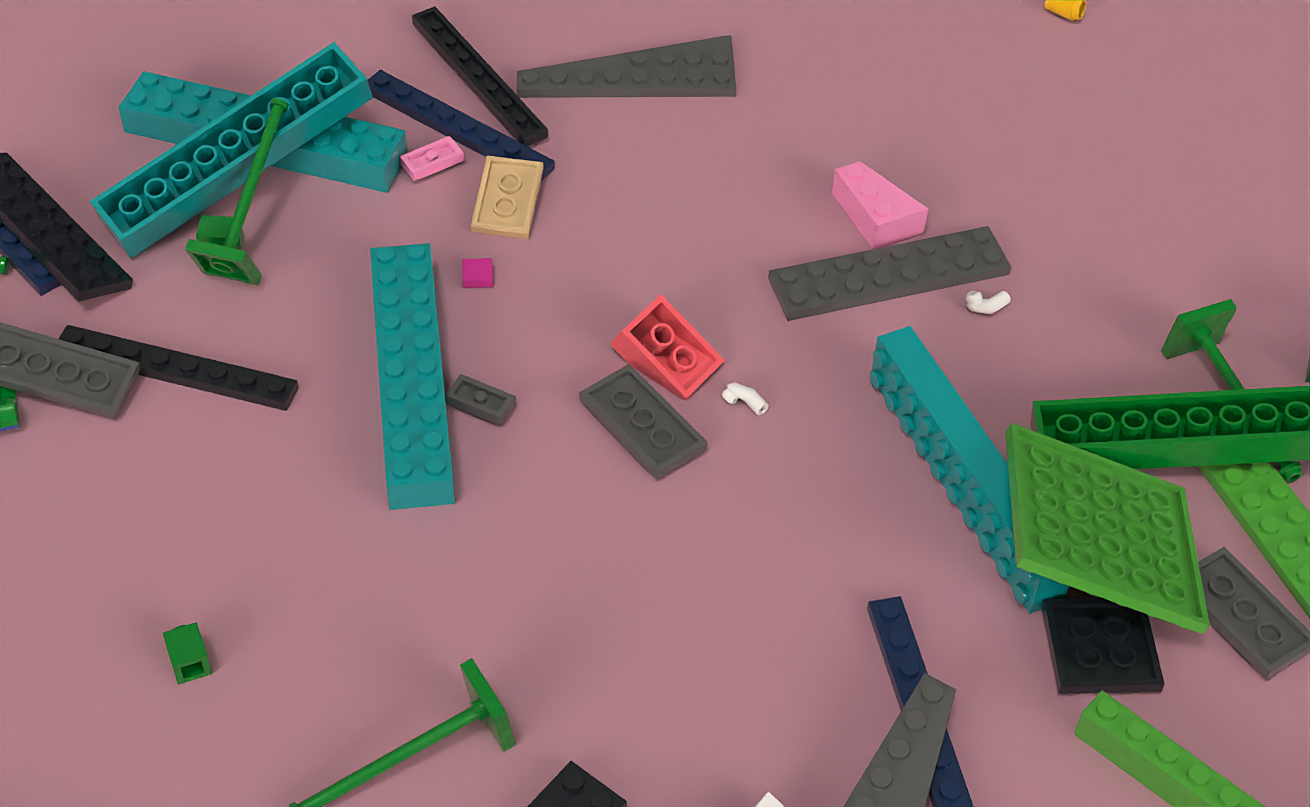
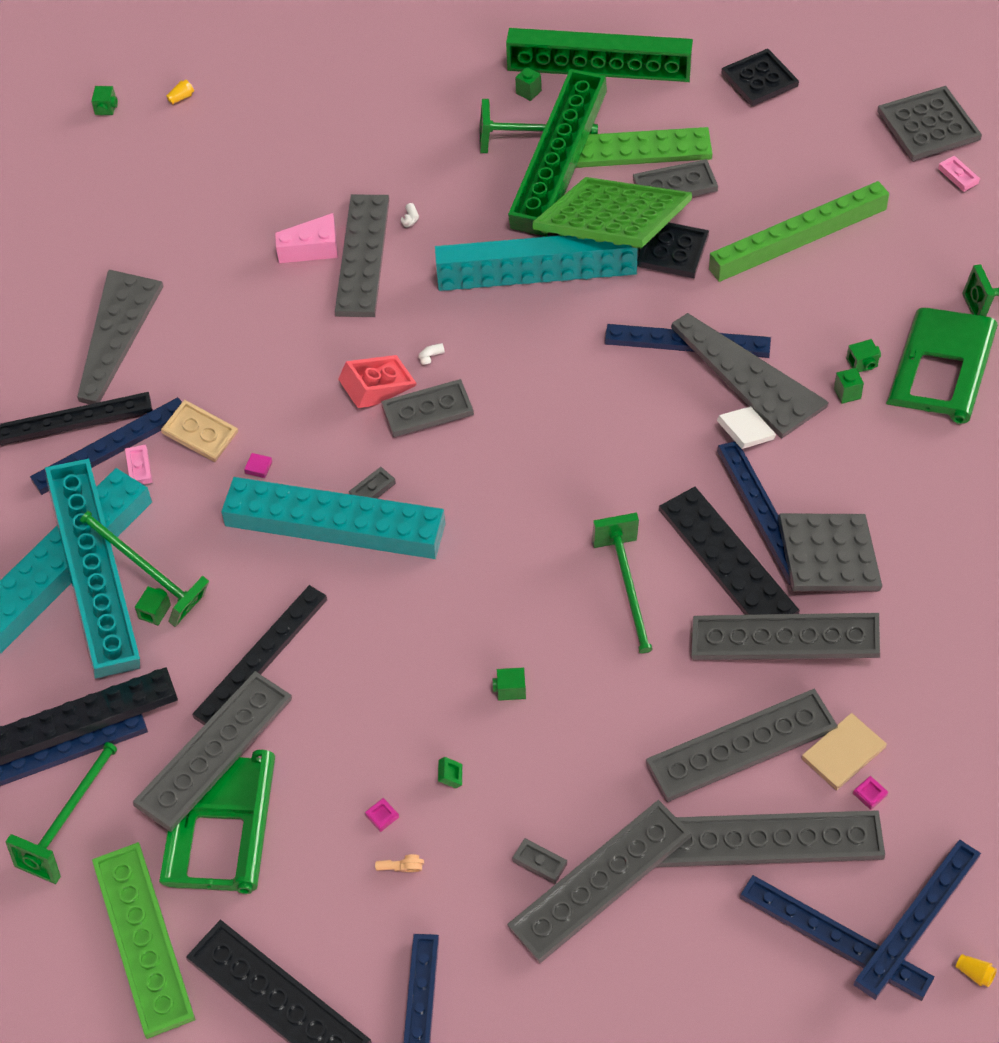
camera: 65 degrees left, 5 degrees up
(24, 622) = (450, 772): none -> green plate

